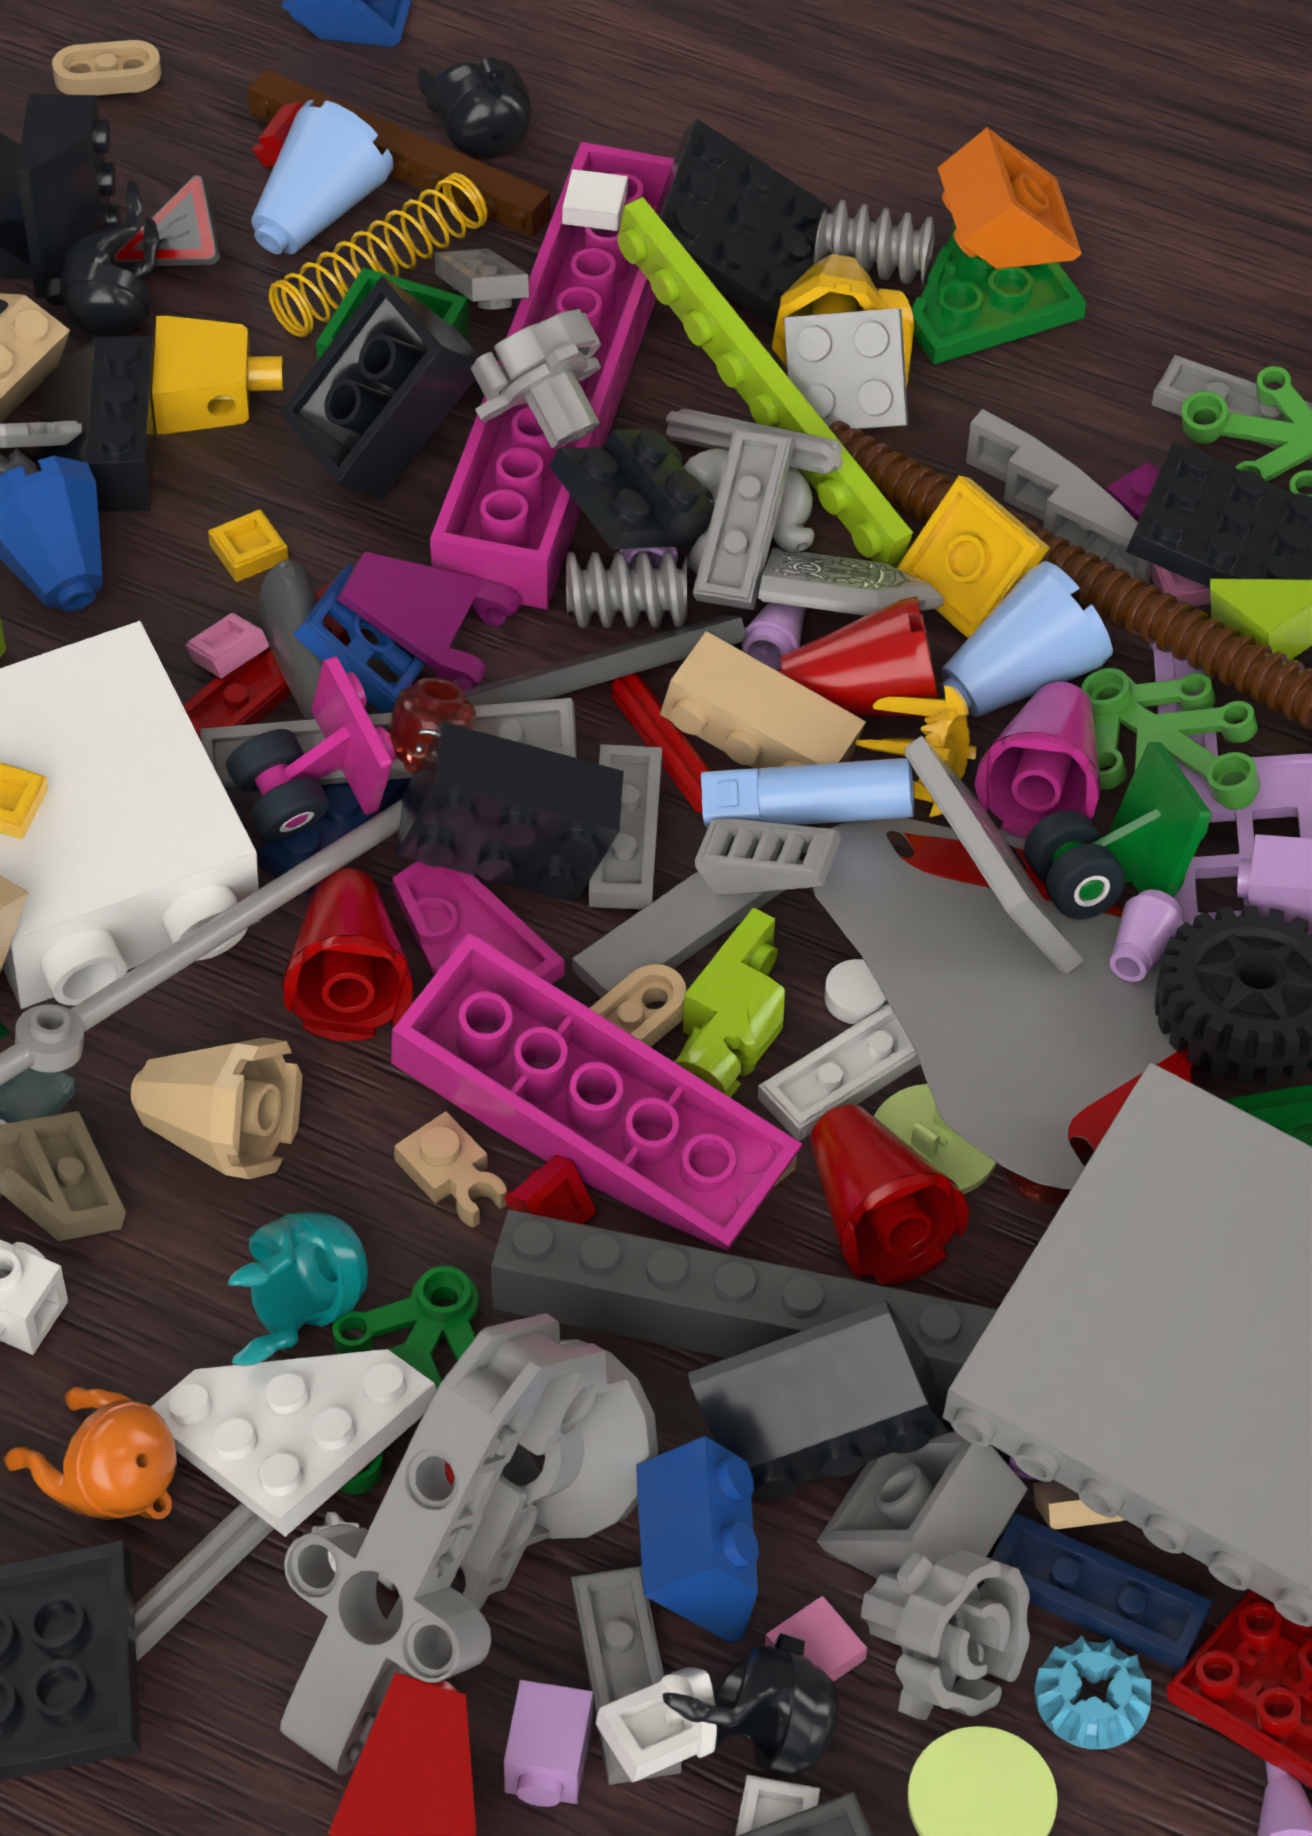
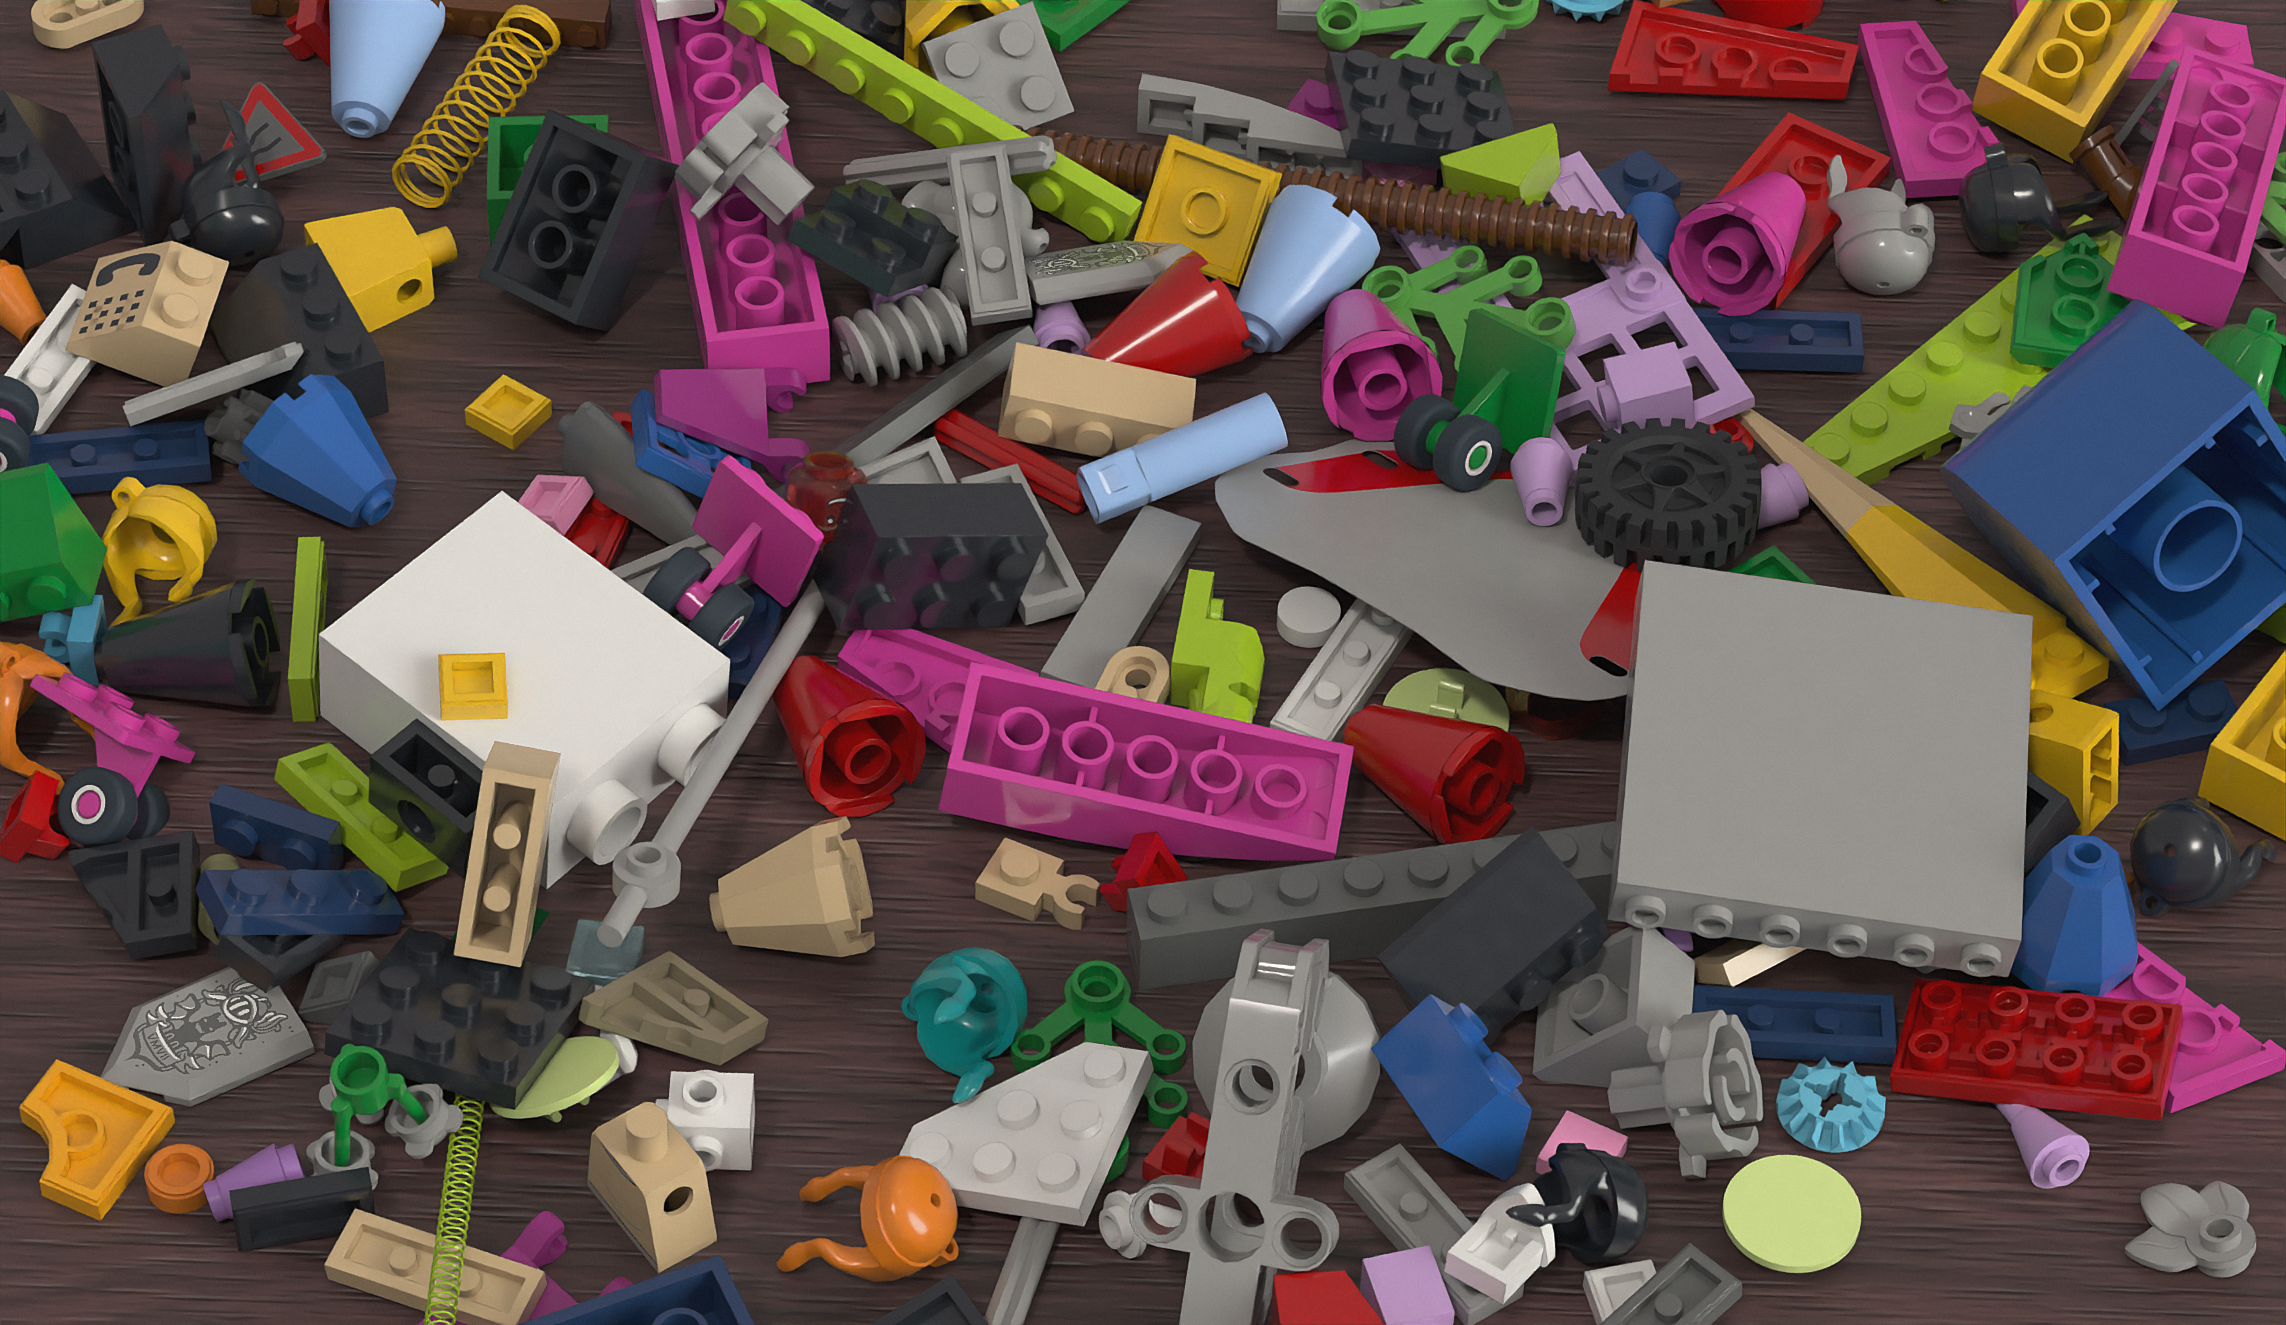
camera: 25 degrees left, 5 degrees down
(482, 277) = (601, 93): light grey plate -> none
(730, 844) = (1158, 528): light grey slope -> none
(945, 732) = (1276, 375): yellow piece -> none
(993, 856) = (1383, 451): light grey tile -> none

